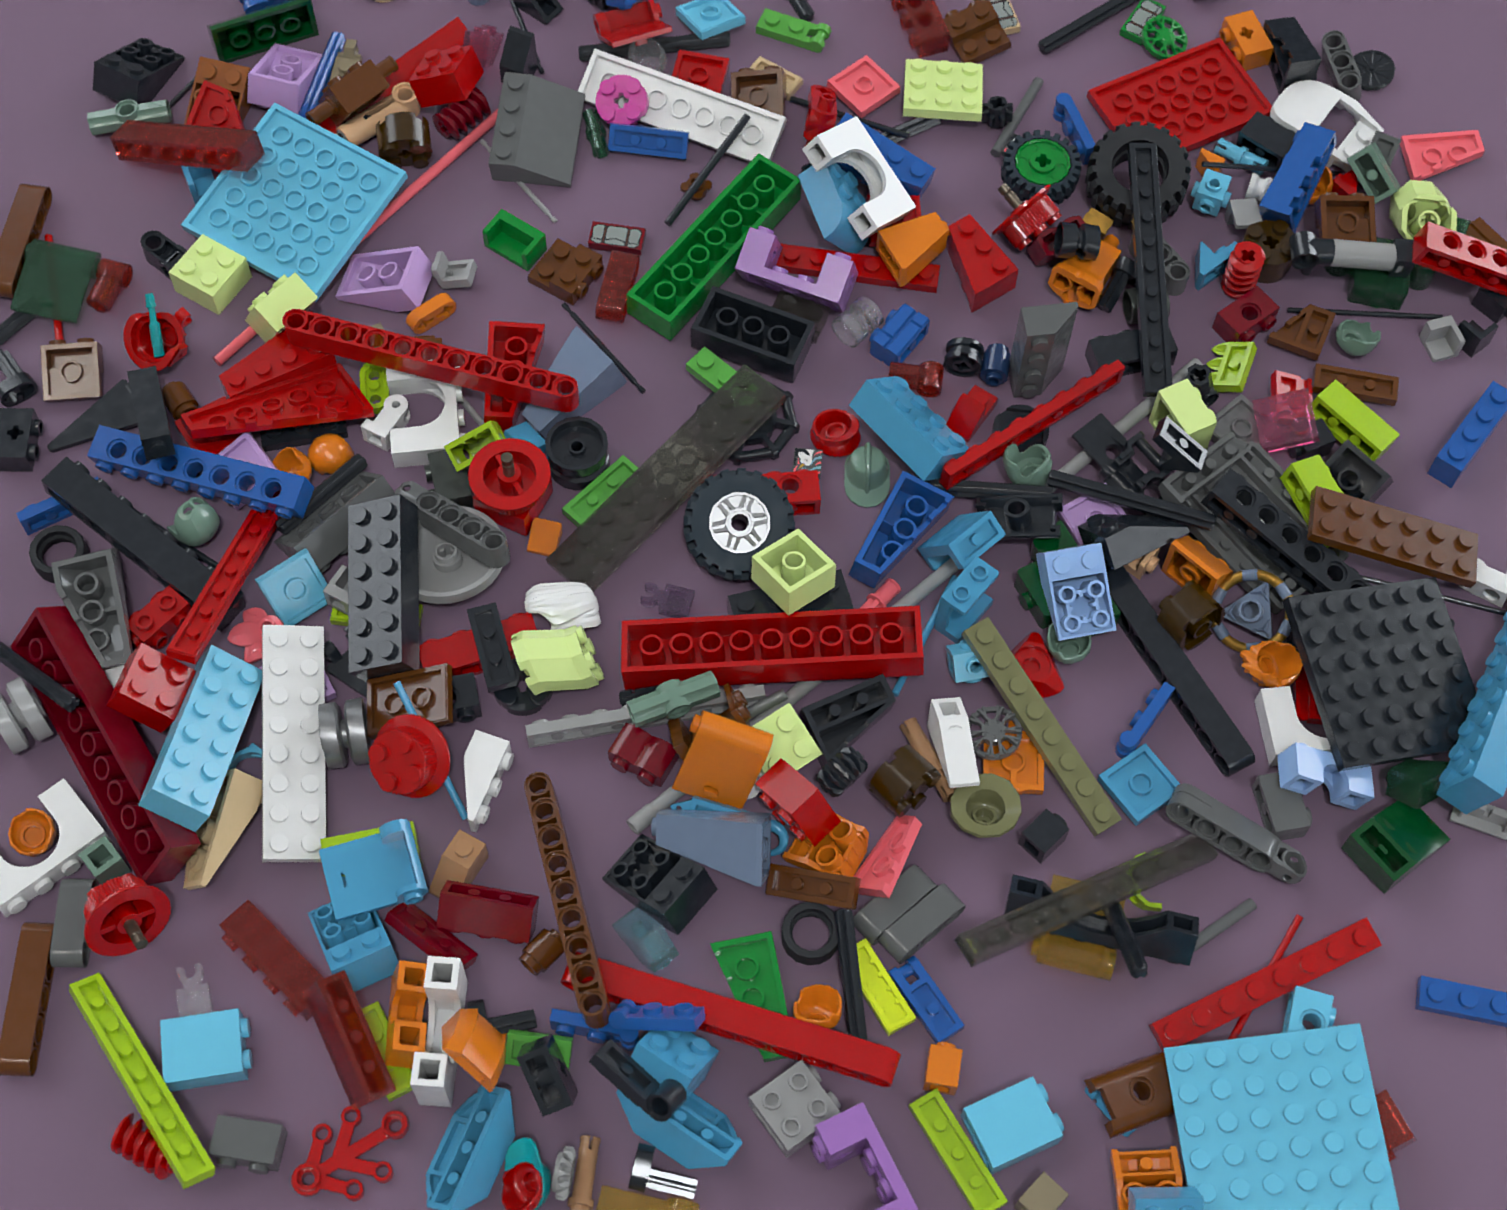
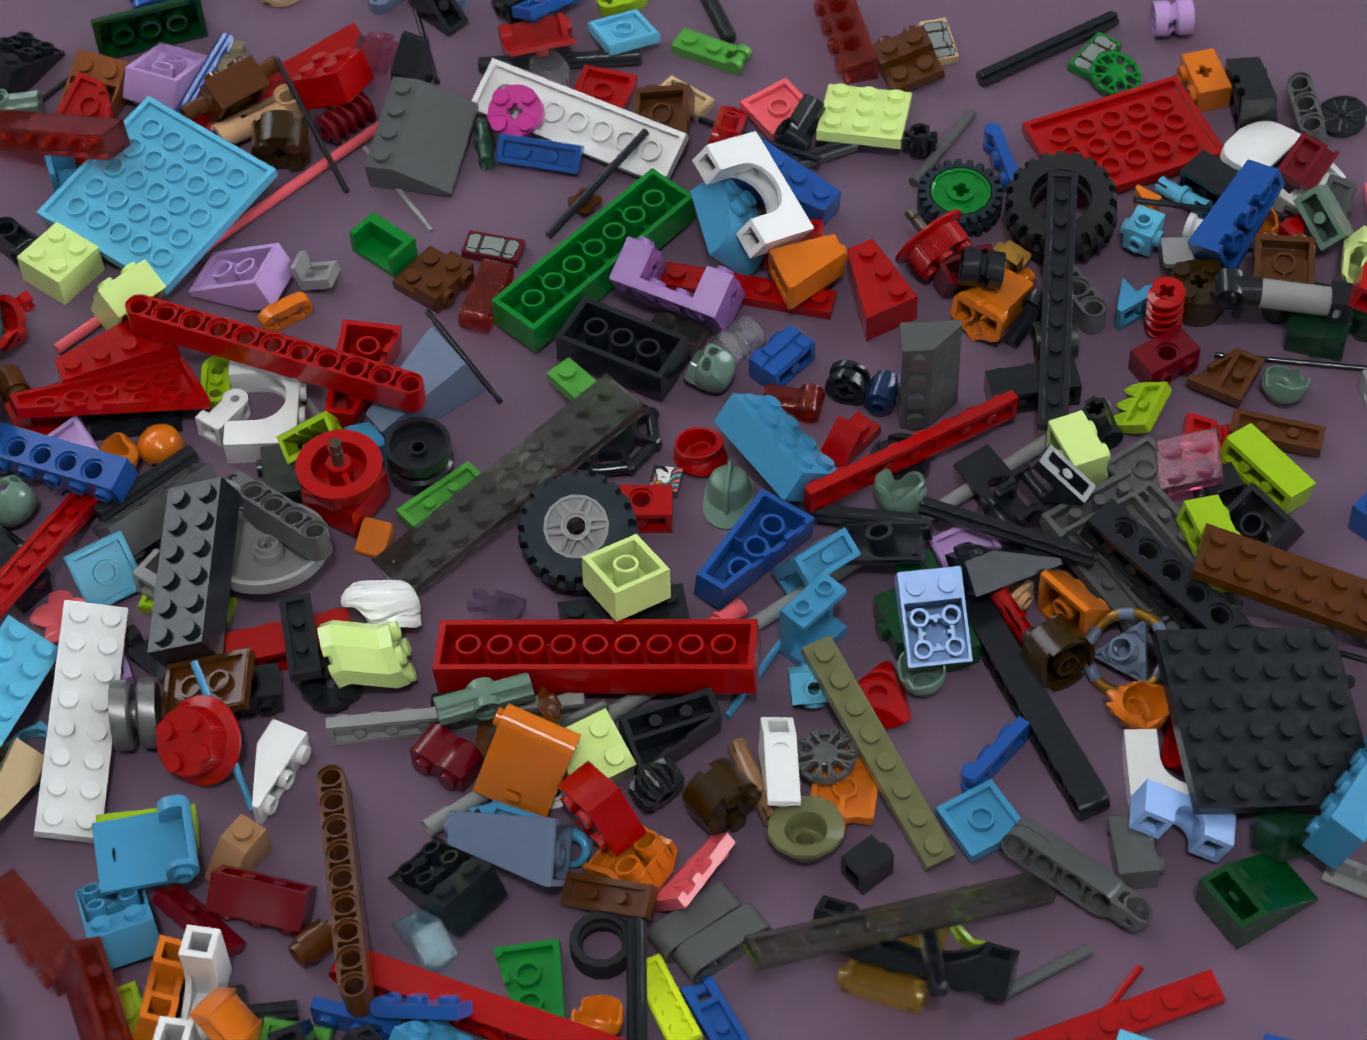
camera: 10 degrees right, 10 degrees down
(432, 123) = (311, 124): none -> black axle
(836, 350) = (711, 371): none -> sand green helmet
(884, 106) = (797, 128): none -> black piece
(1145, 581) = (1011, 612): none -> red pin
(1352, 120) = (1306, 163): none -> dark red plate

